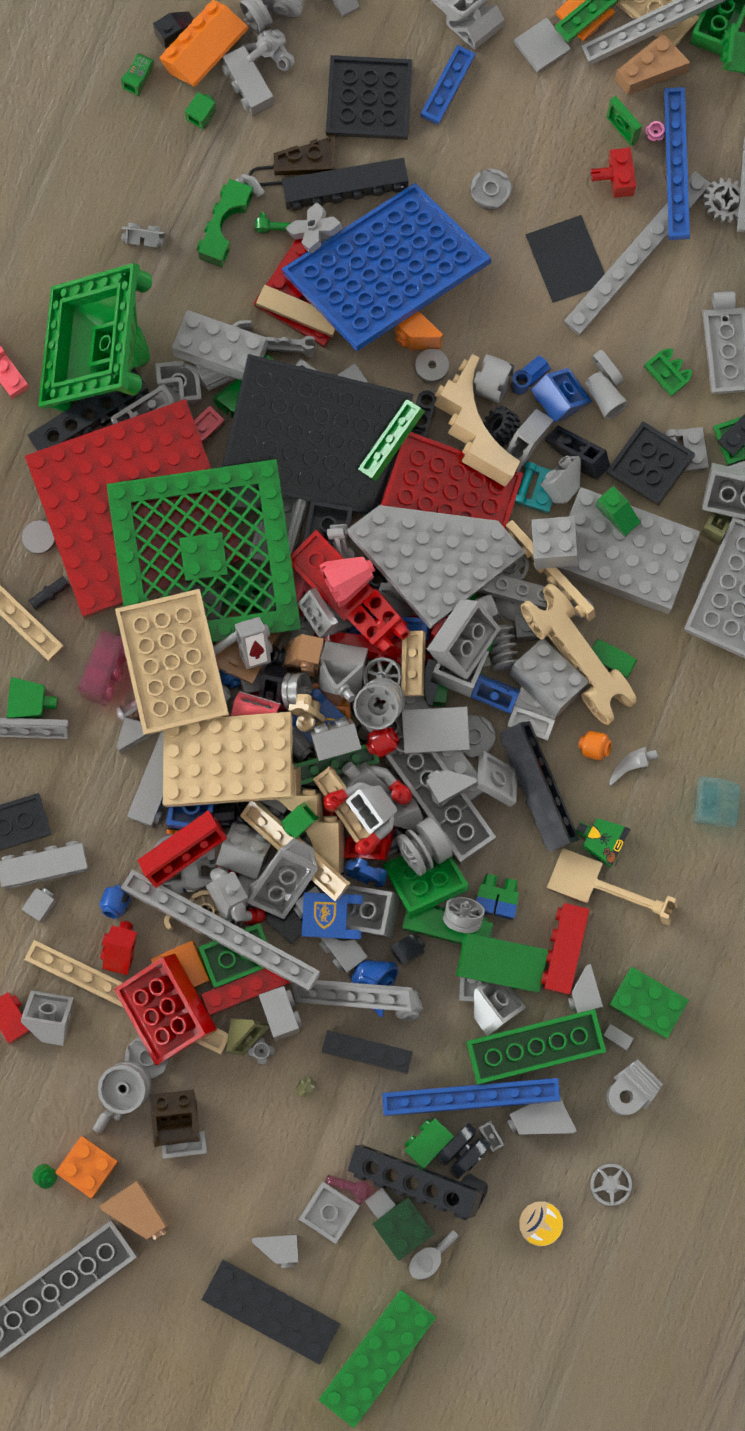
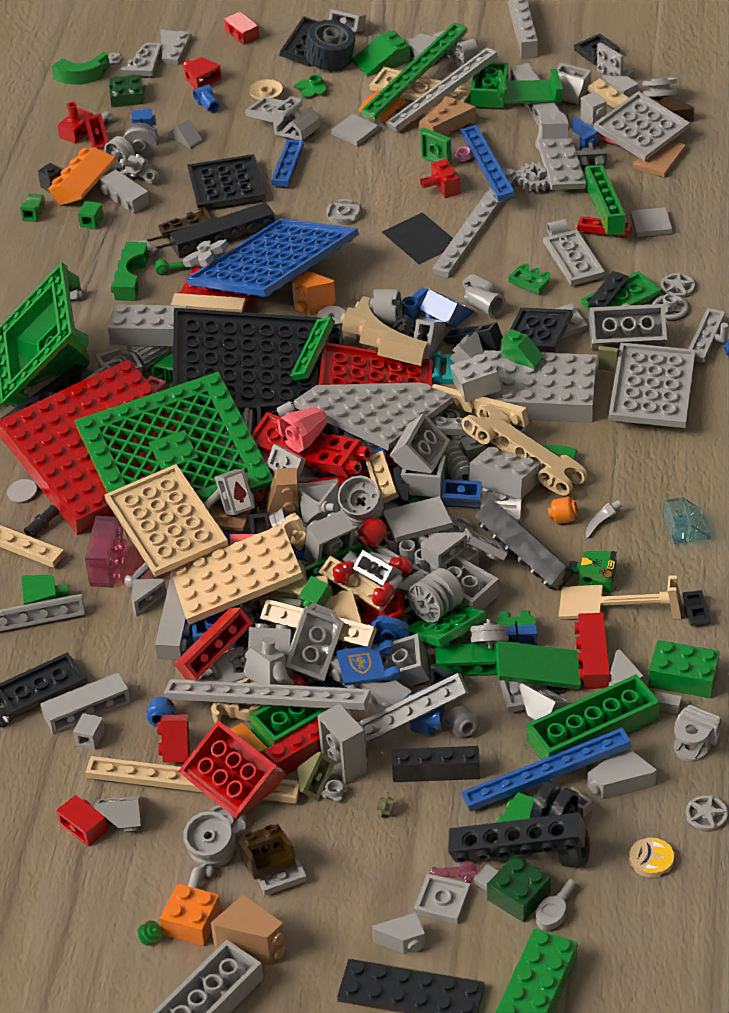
camera: 10 degrees left, 35 degrees down
(688, 920) = (695, 608): none -> black slope

